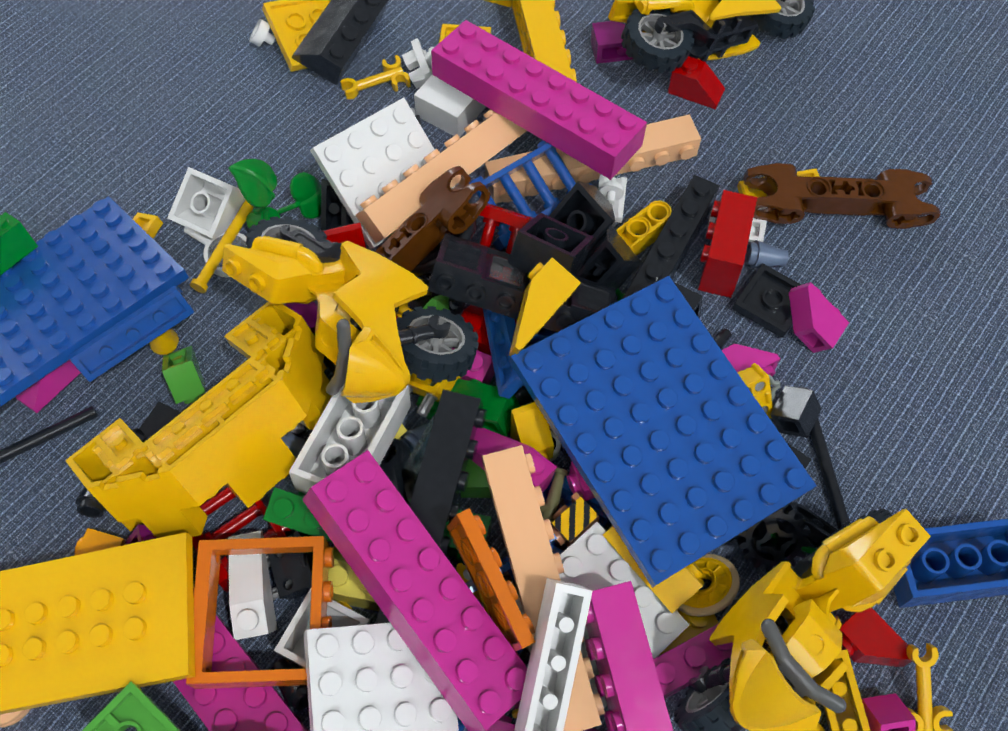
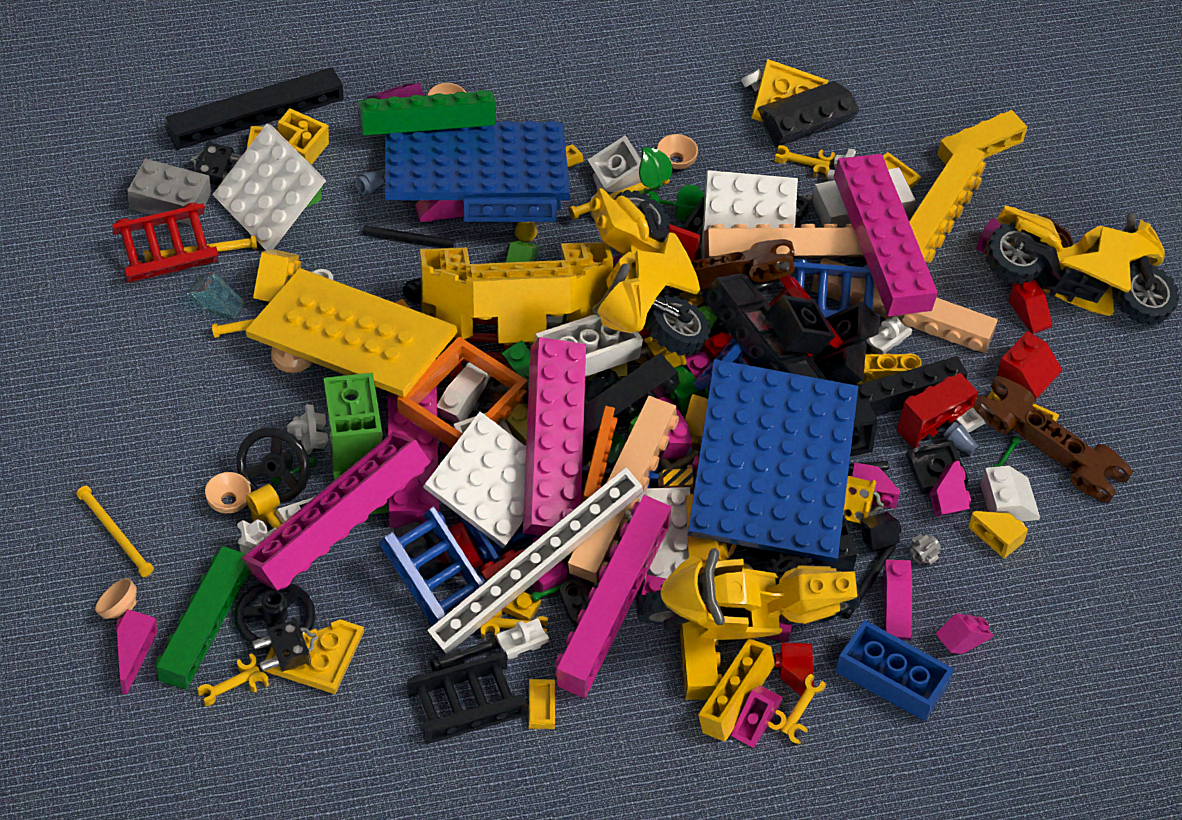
camera: 35 degrees right, 10 degrees down
(251, 142) = (679, 146): none -> light nougat piece
(542, 298) = (763, 342): yellow slope -> none
(748, 139) = (1030, 364): none -> red slope
(817, 260) = (1014, 442): none -> green hinge
(849, 397) = (925, 549): none -> light grey gear
(856, 284) = (1009, 492): none -> white slope
(876, 472) = (897, 598): none -> dark pink slope
(890, 324) = (999, 531): none -> yellow slope
(969, 461) = (964, 633): none -> dark pink slope

